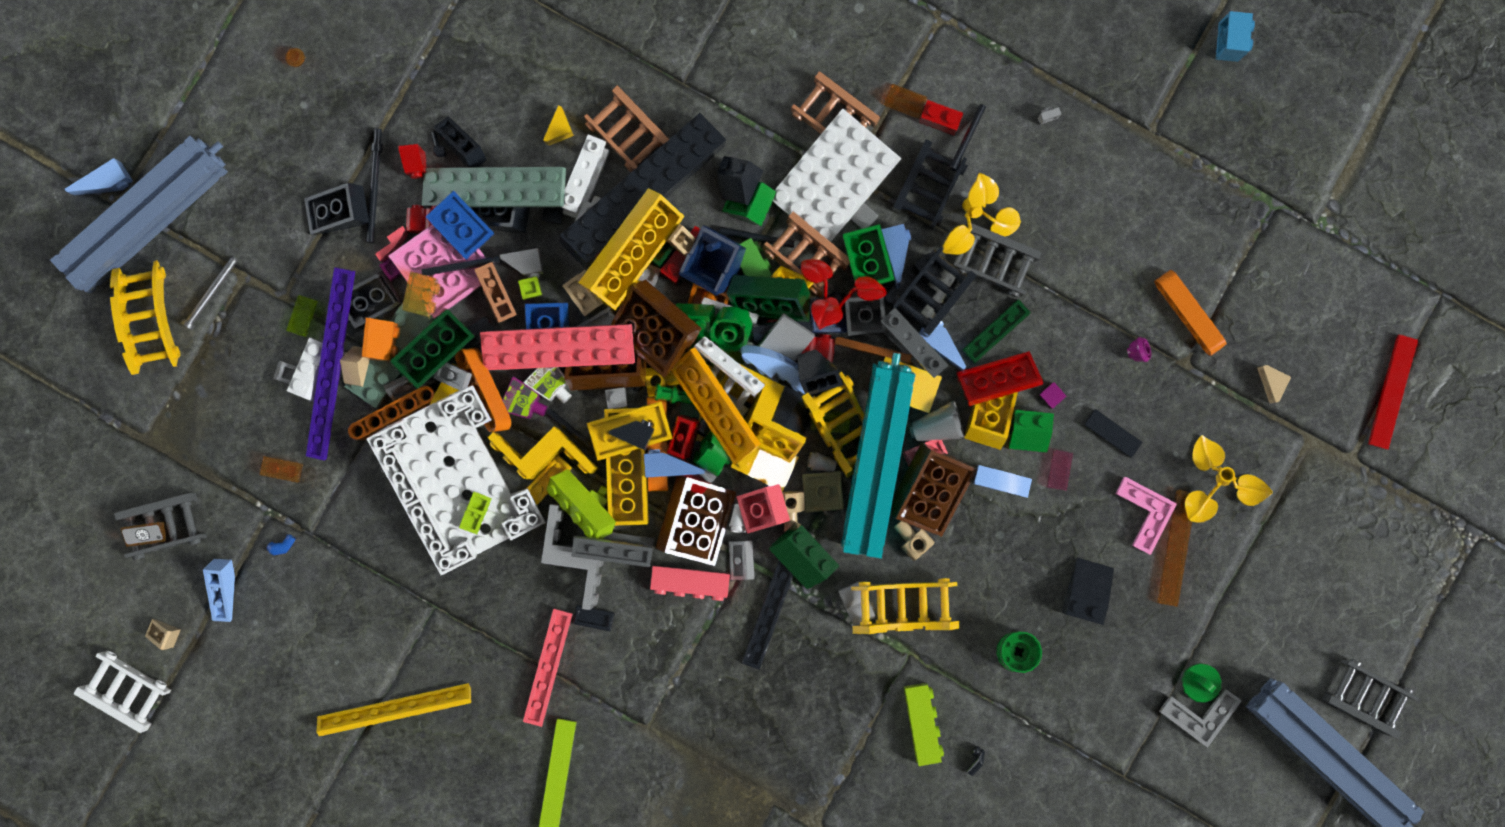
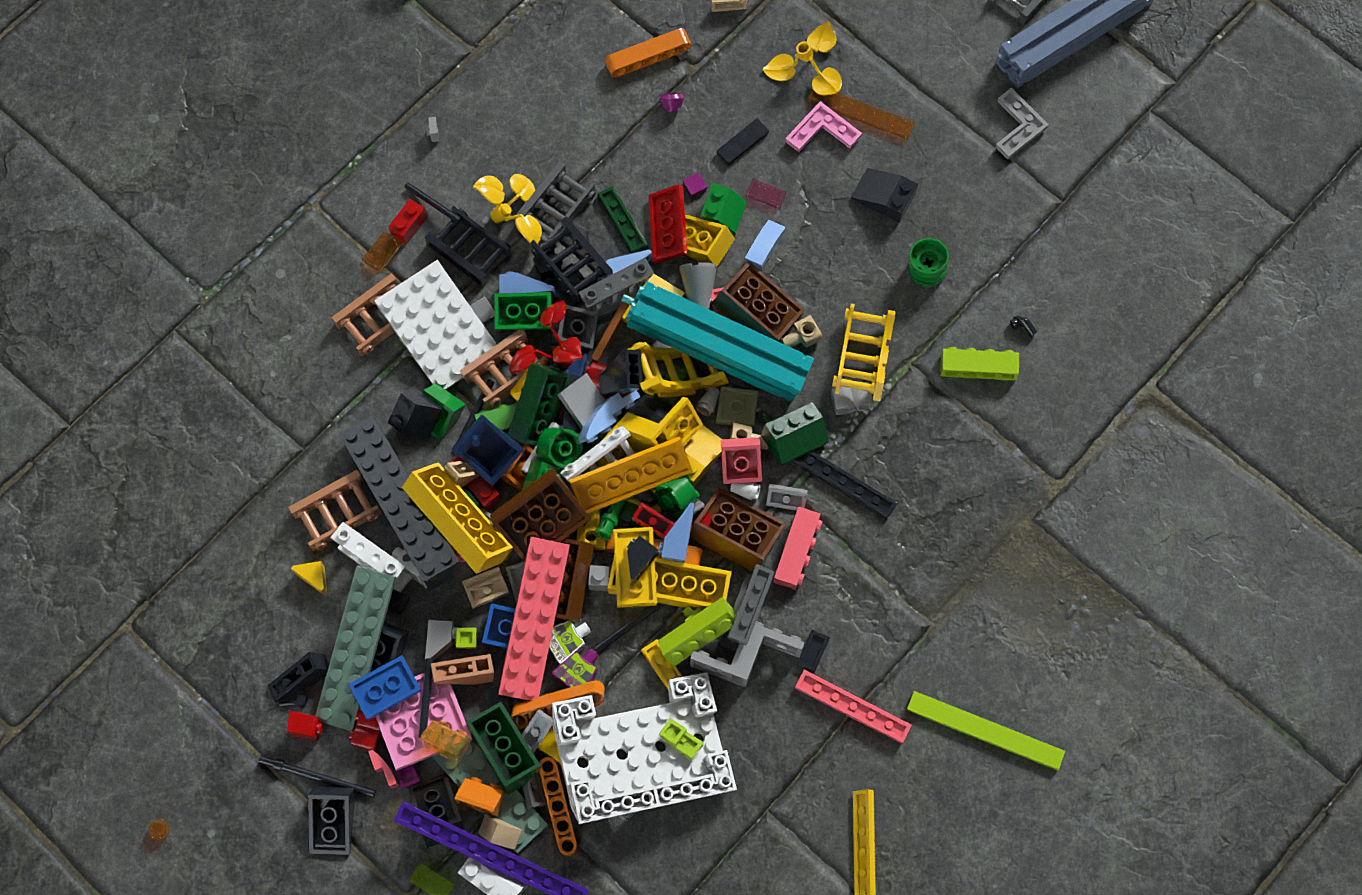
camera: 75 degrees left, 15 degrees down
(542, 453) = (637, 659): yellow bracket -> none
(1201, 682) = (988, 118): green tile -> none

